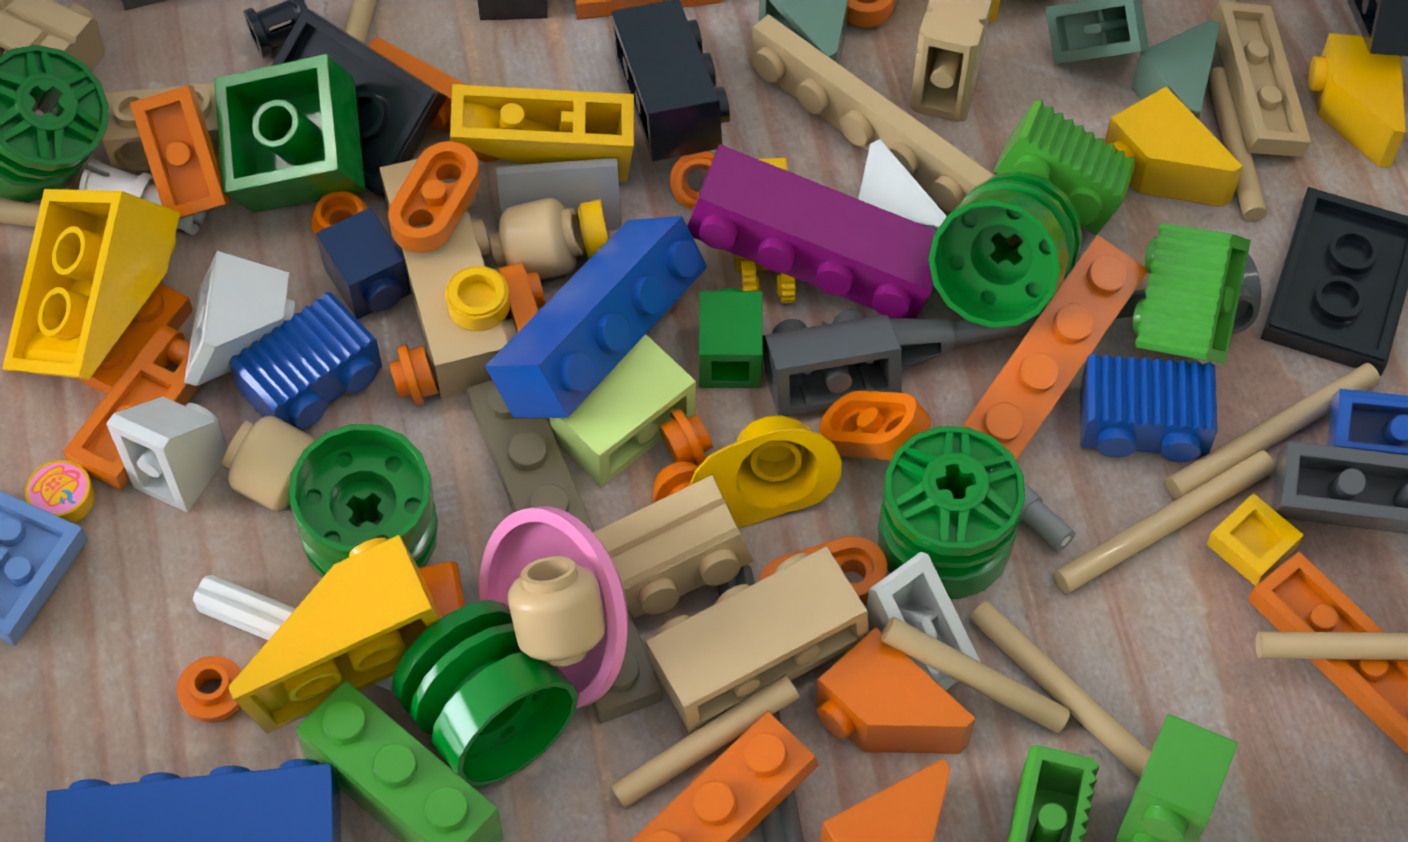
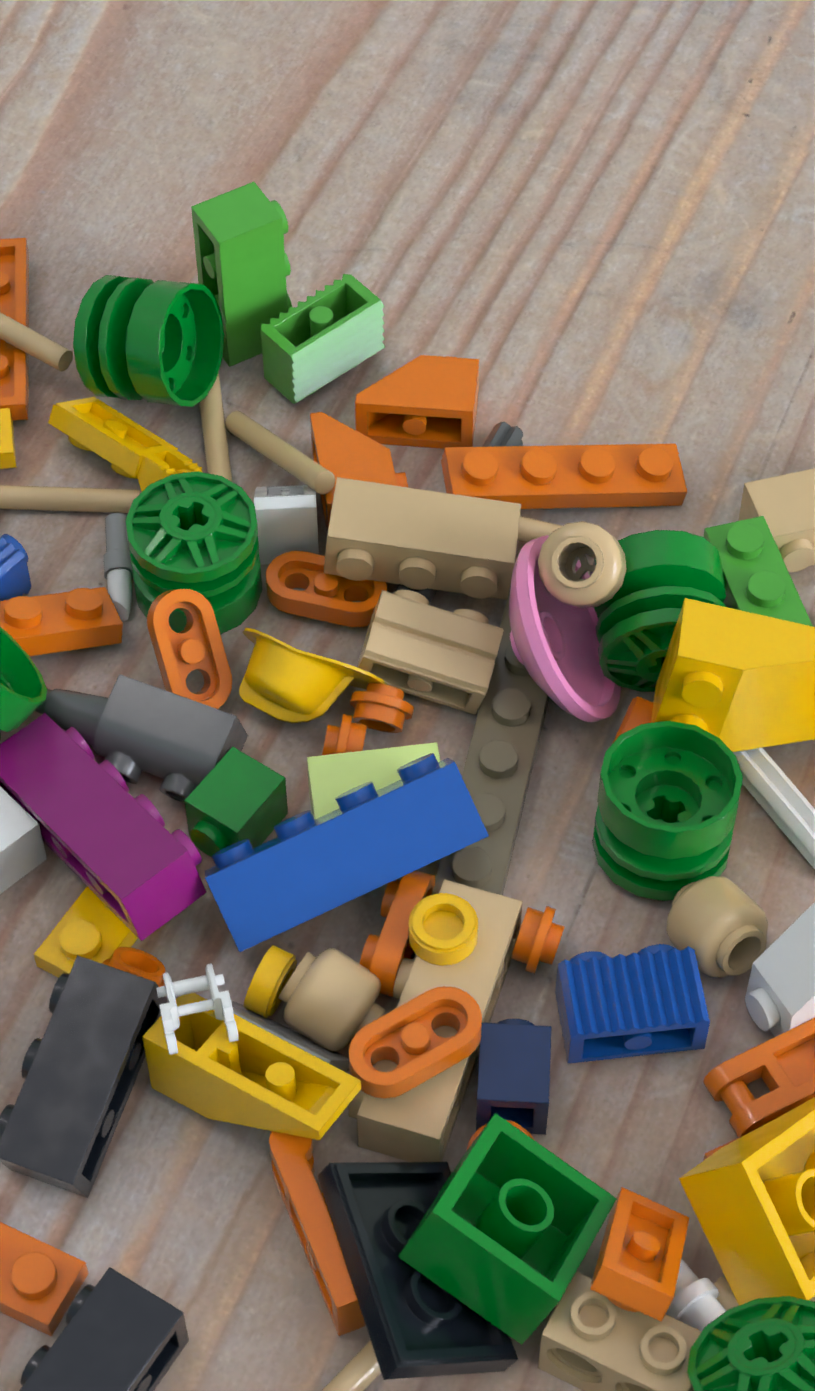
camera: 145 degrees left, 5 degrees down
(233, 310) = (681, 1063): white slope -> none
(591, 128) = (219, 1002): none -> white piece
(1129, 608) = (118, 439): none -> yellow hinge
(1198, 669) = (149, 340): none -> green wheel

